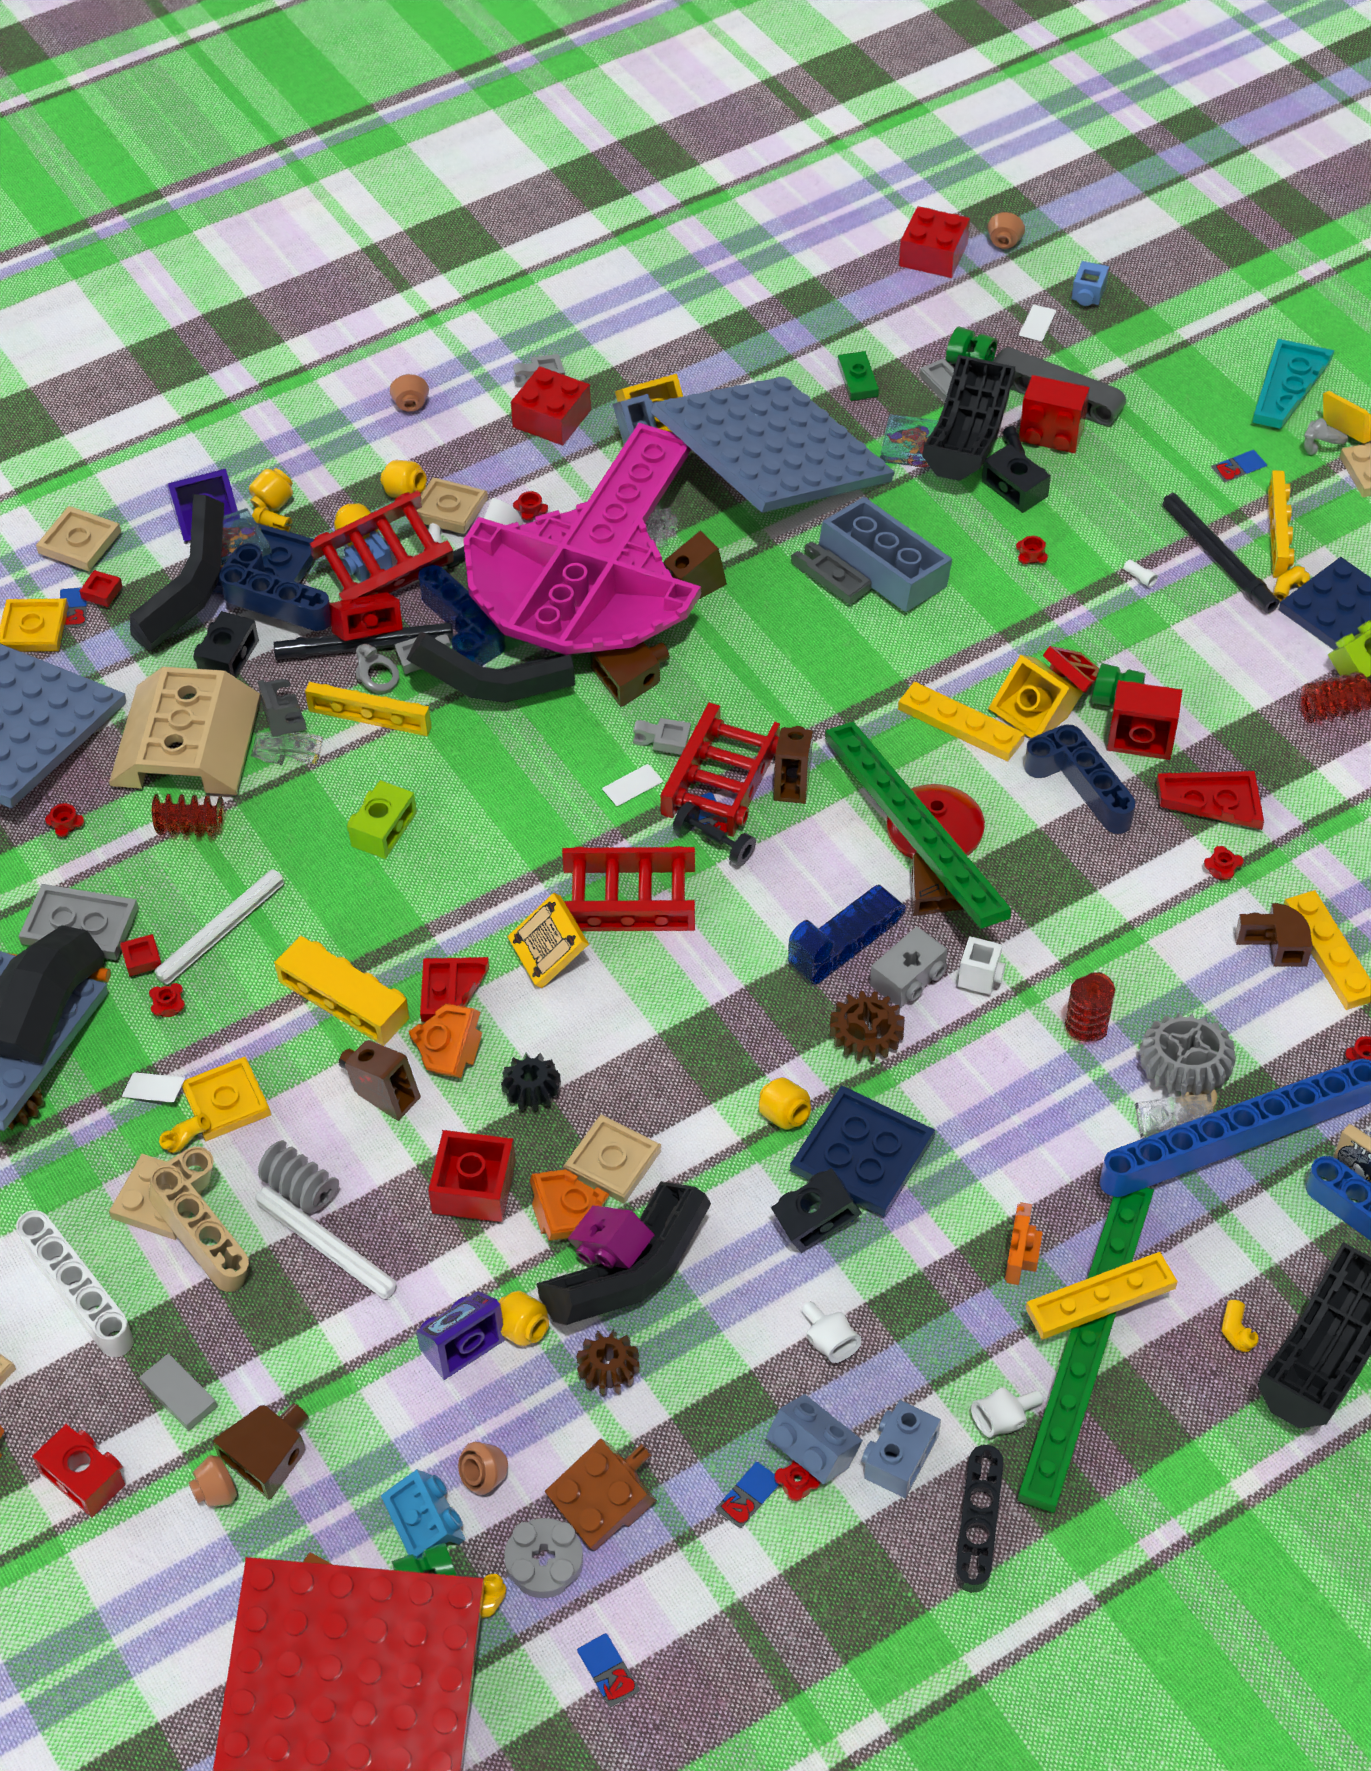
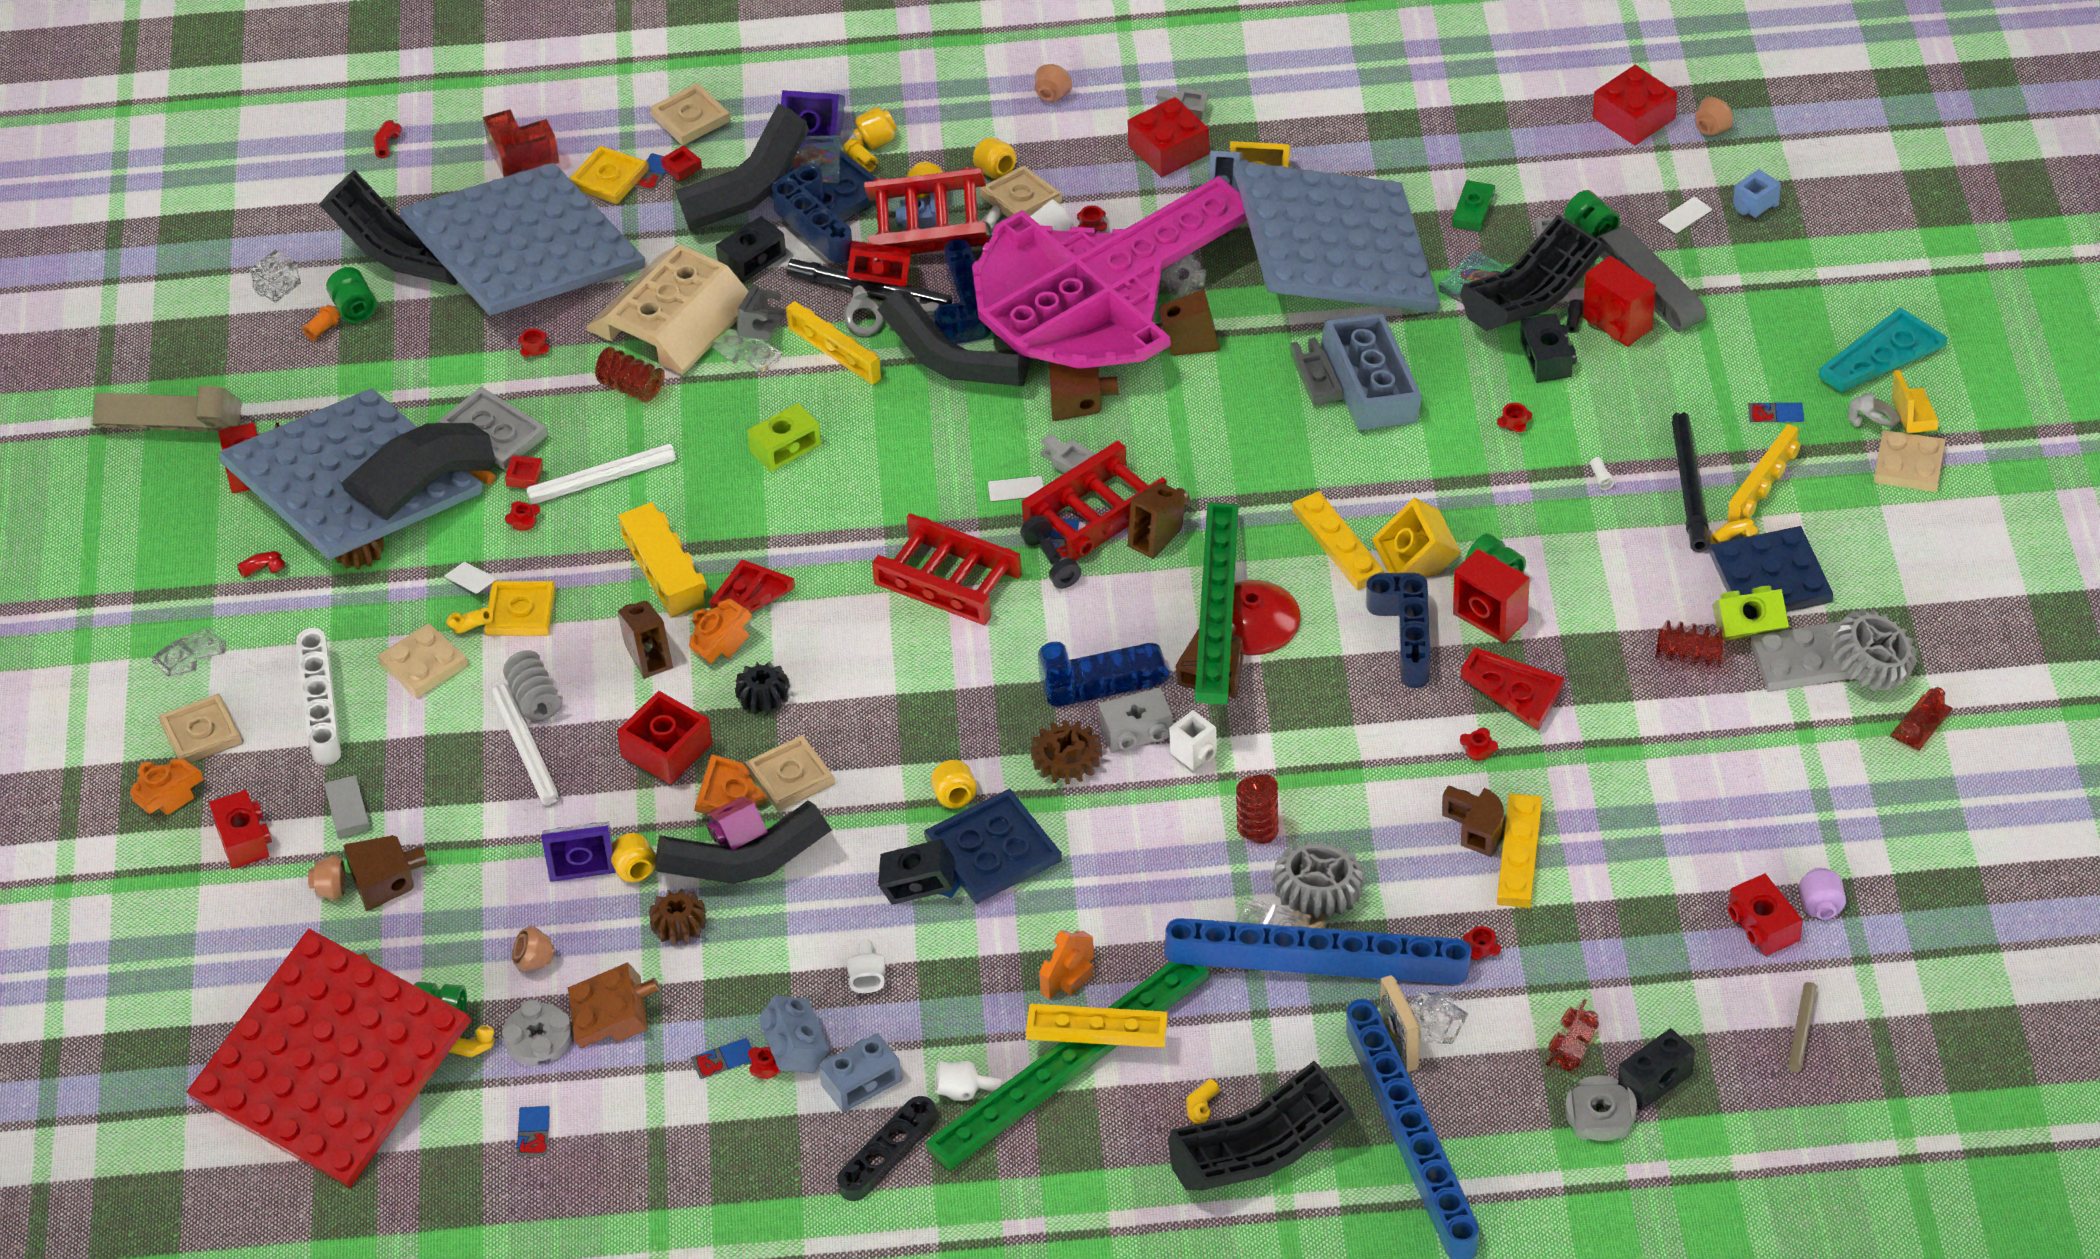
camera: 30 degrees right, 5 degrees down
(205, 1223) = (435, 690): tan beam -> none
(422, 1512) = (469, 961): dark azure bracket -> none
(548, 940) = (849, 582): tile -> none
(1073, 666) = (1461, 526): red wing -> none

